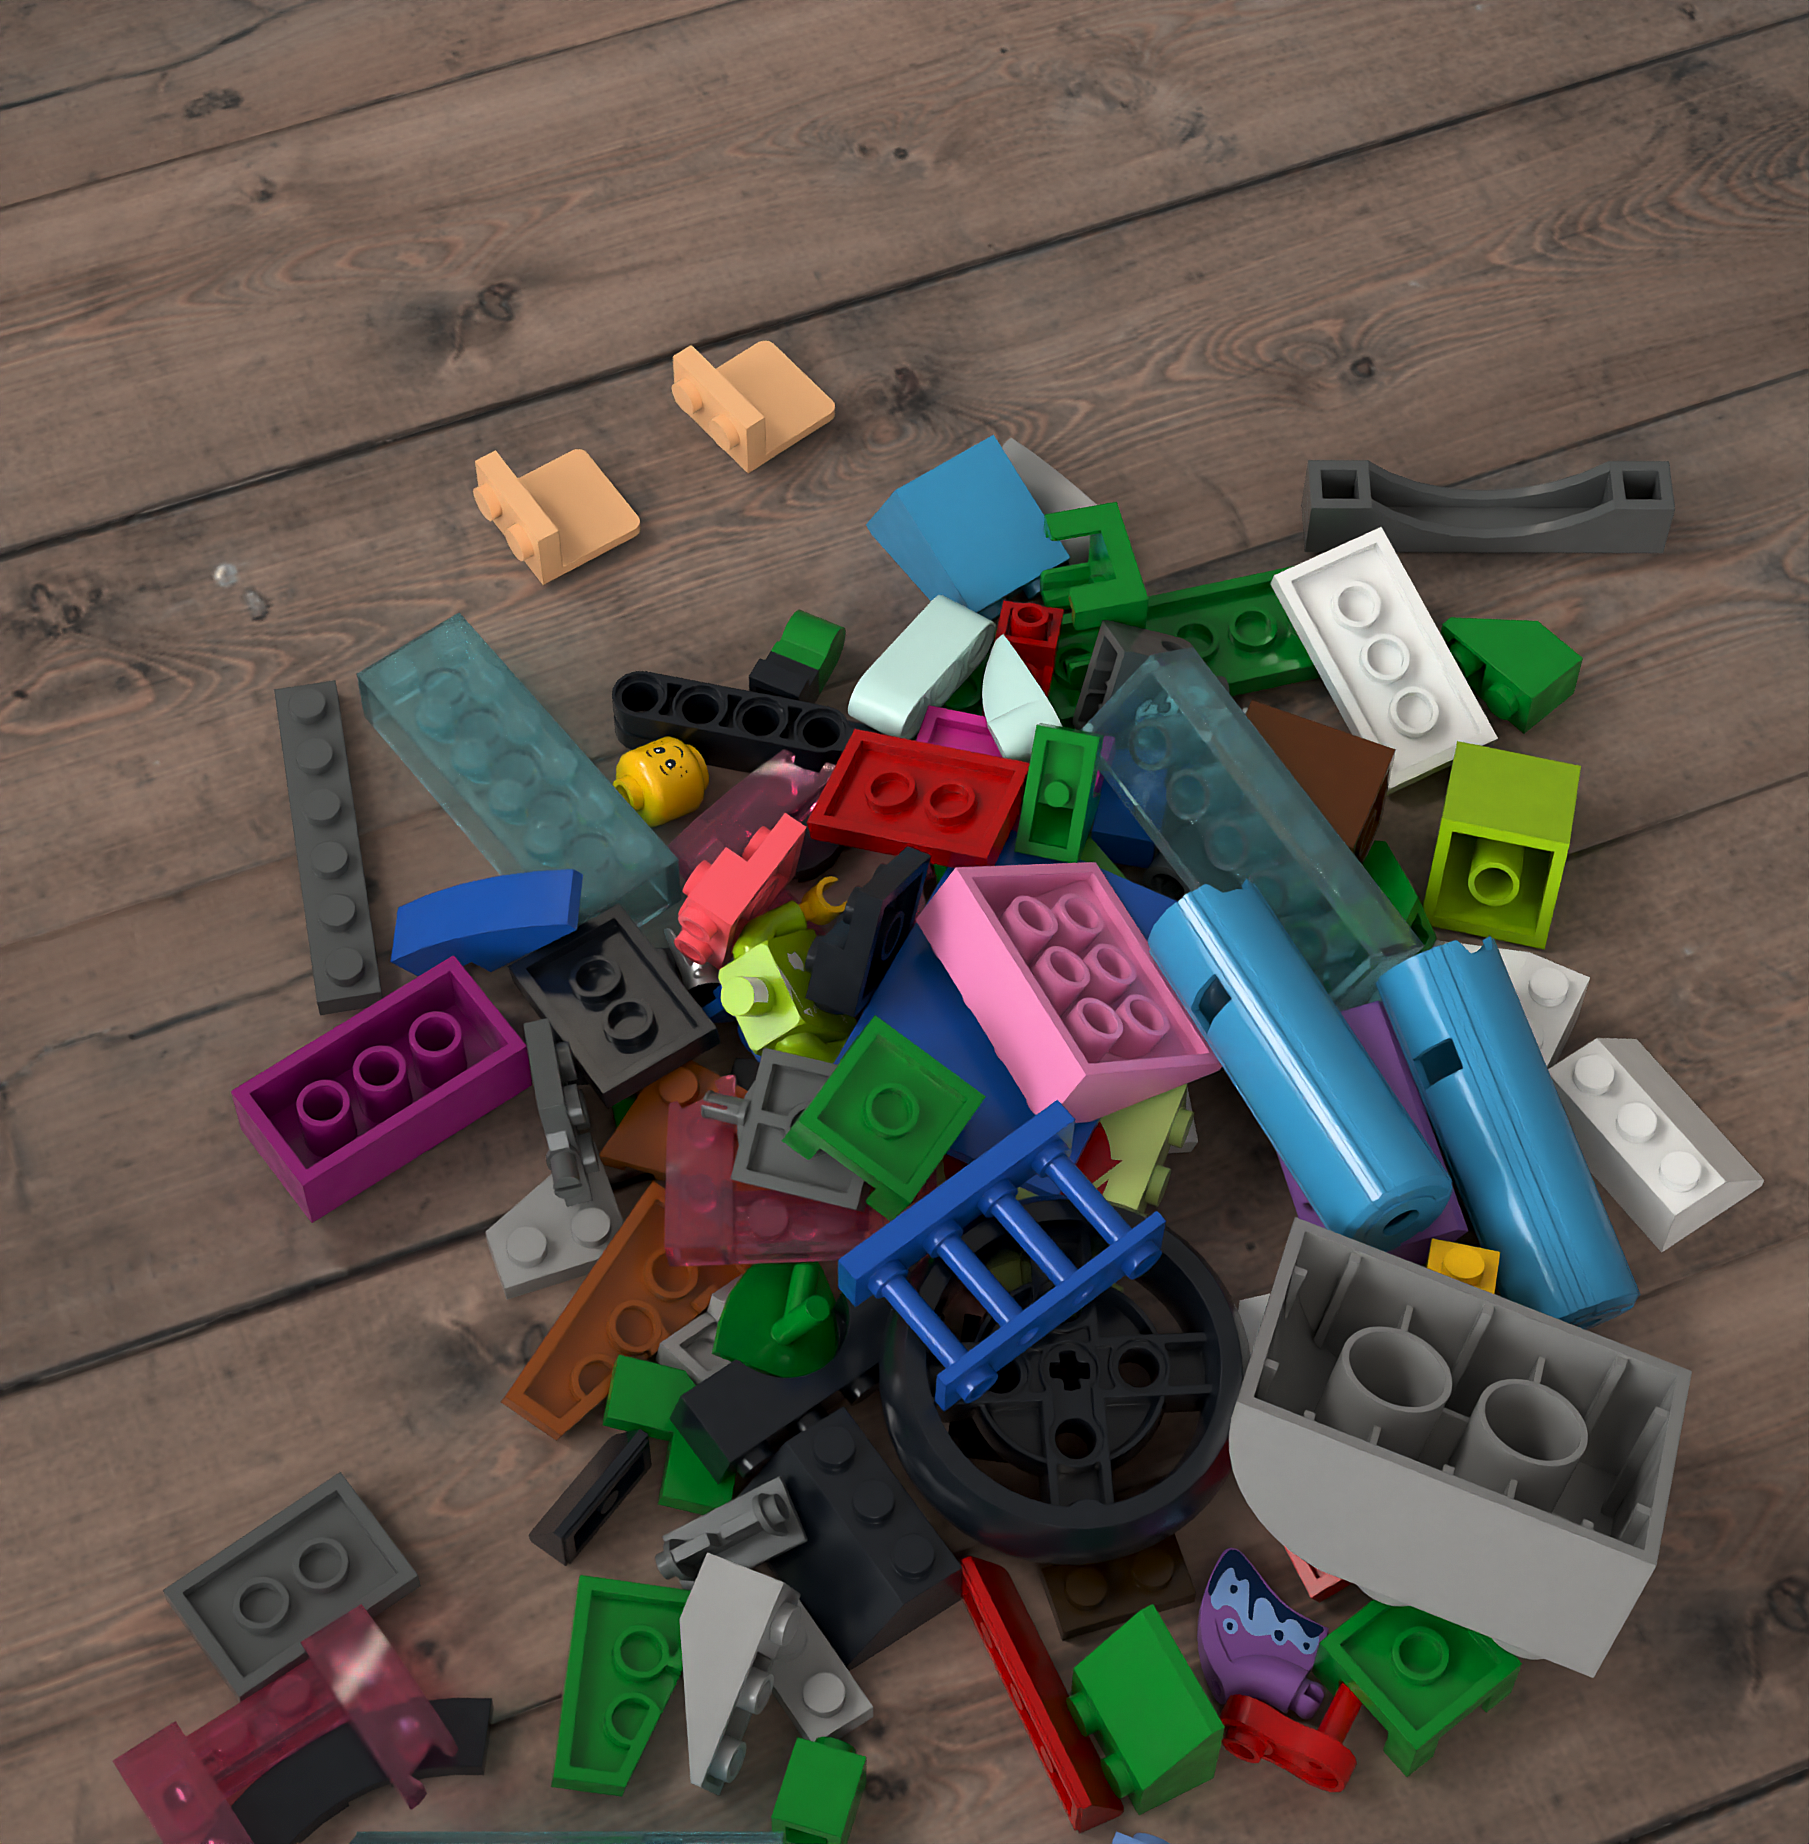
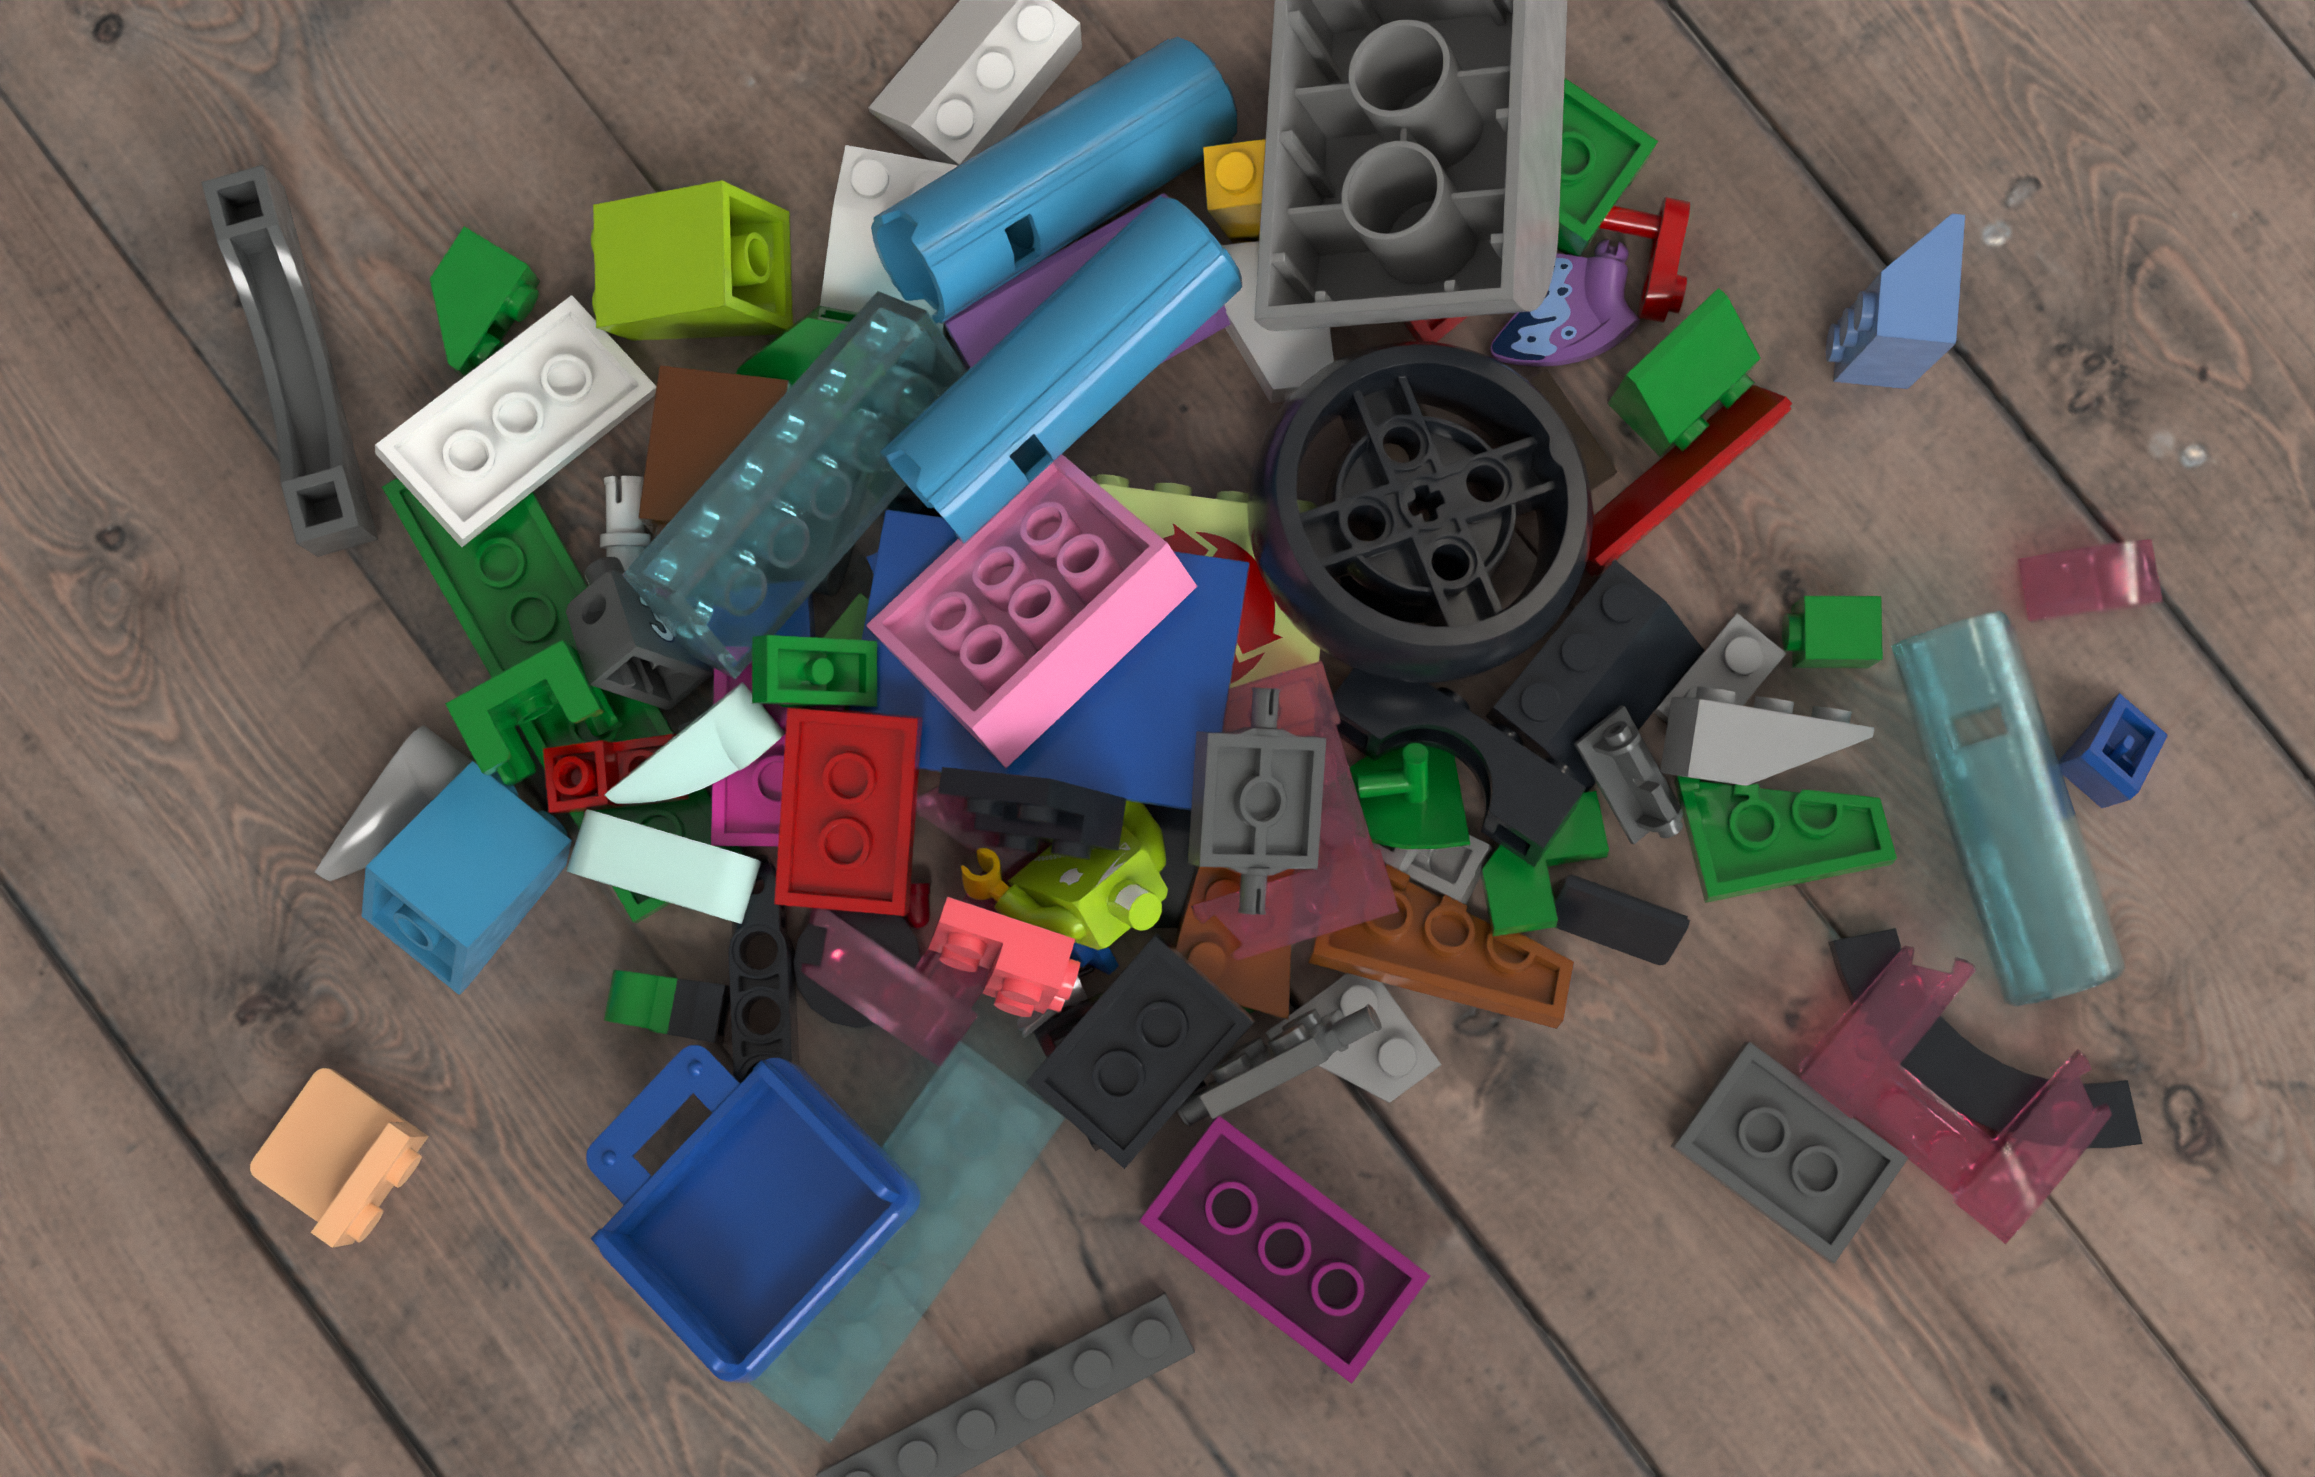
camera: 105 degrees left, 25 degrees up
(487, 920) = (1080, 1206): blue slope -> none
(556, 512) = (540, 1317): light nougat bracket -> none
(579, 643) = (750, 1213): none -> blue piece
(662, 780) = (860, 1090): yellow head -> none
(835, 894) = (919, 905): none -> dark red piece
(886, 1115) = (1251, 724): green panel -> none
(990, 1189) = (1311, 601): blue fence -> none

